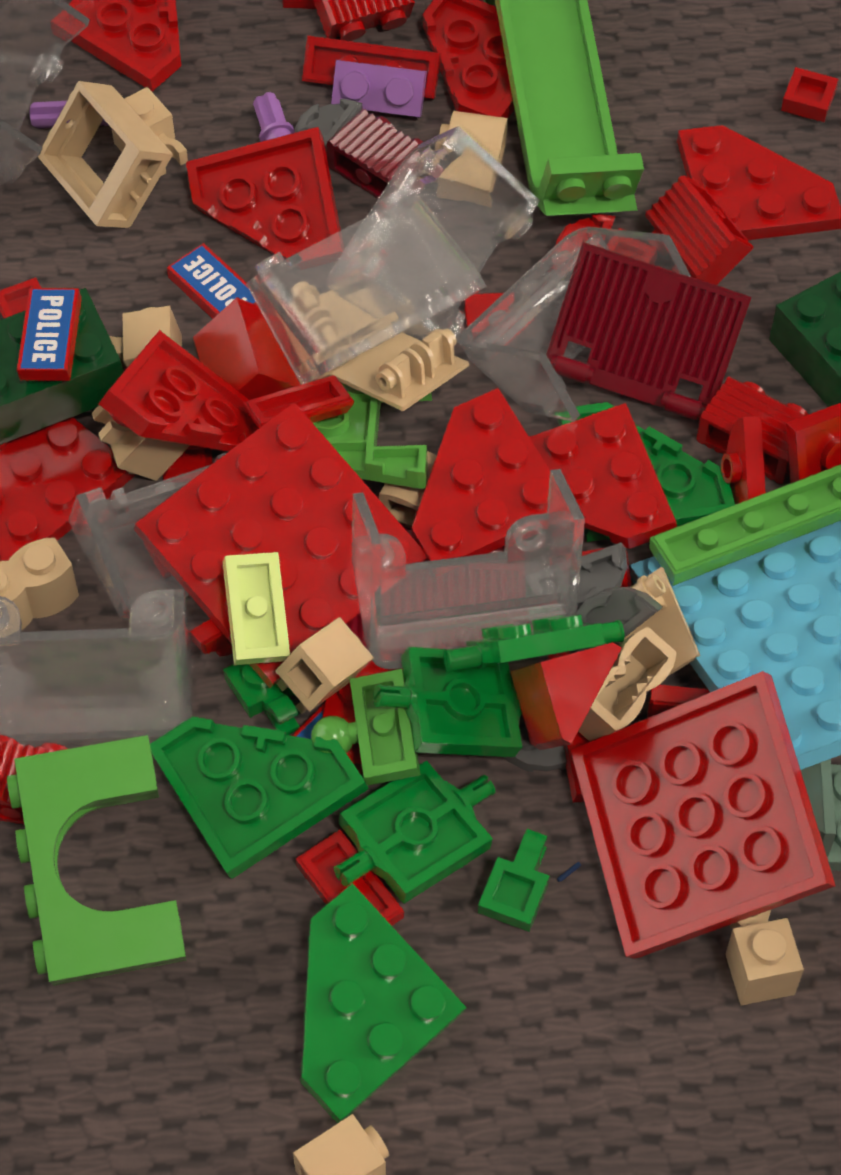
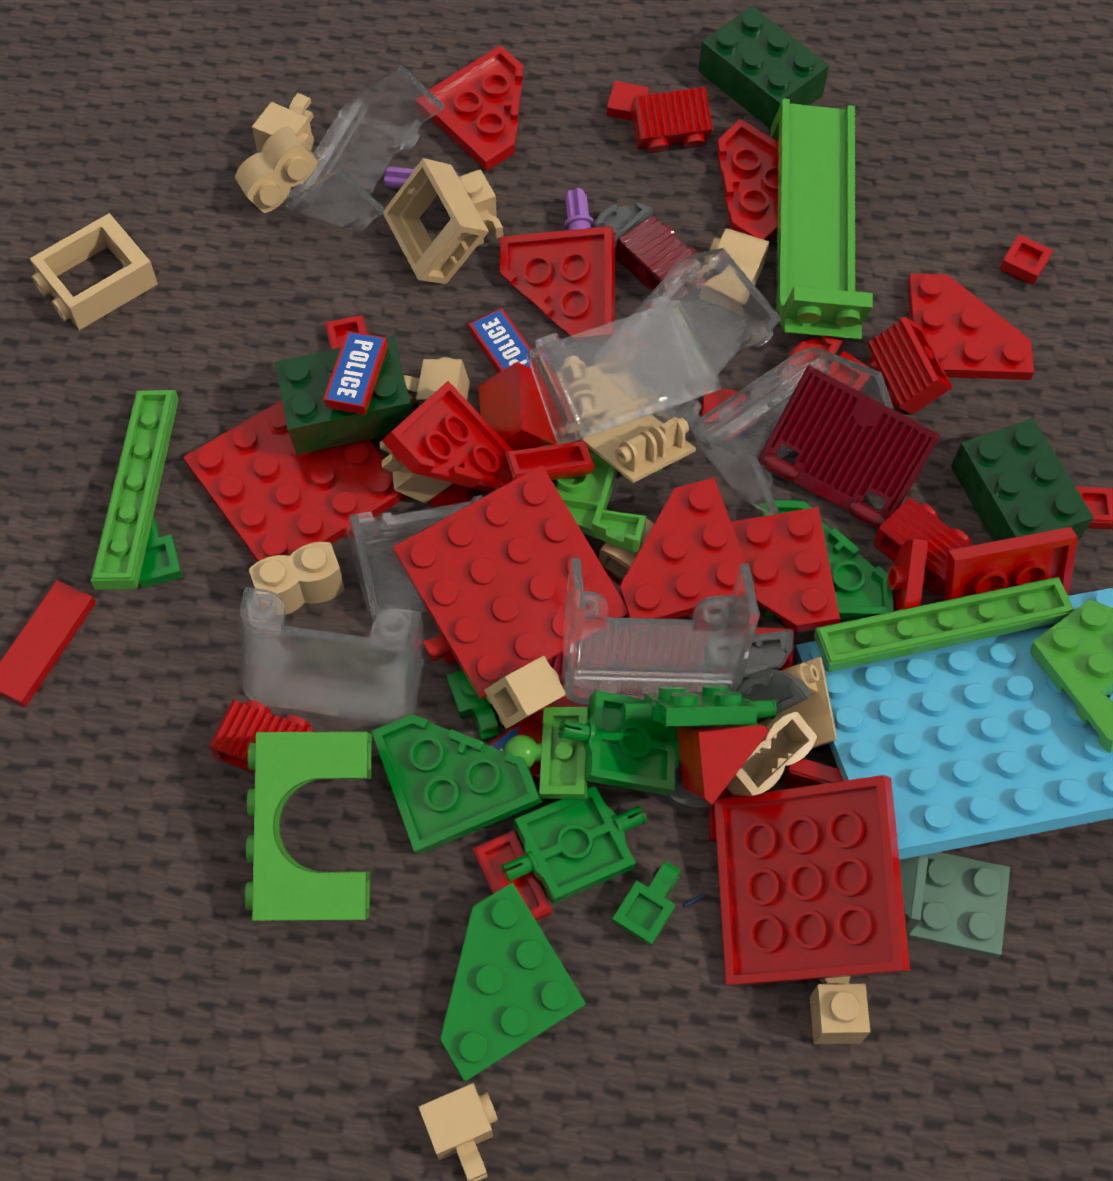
camera: 10 degrees right, 5 degrees up
(256, 608) = (477, 636): yellowish green plate -> none
(323, 52) = (667, 178): red tile -> none
(380, 87) = (670, 197): medium lavender plate -> none

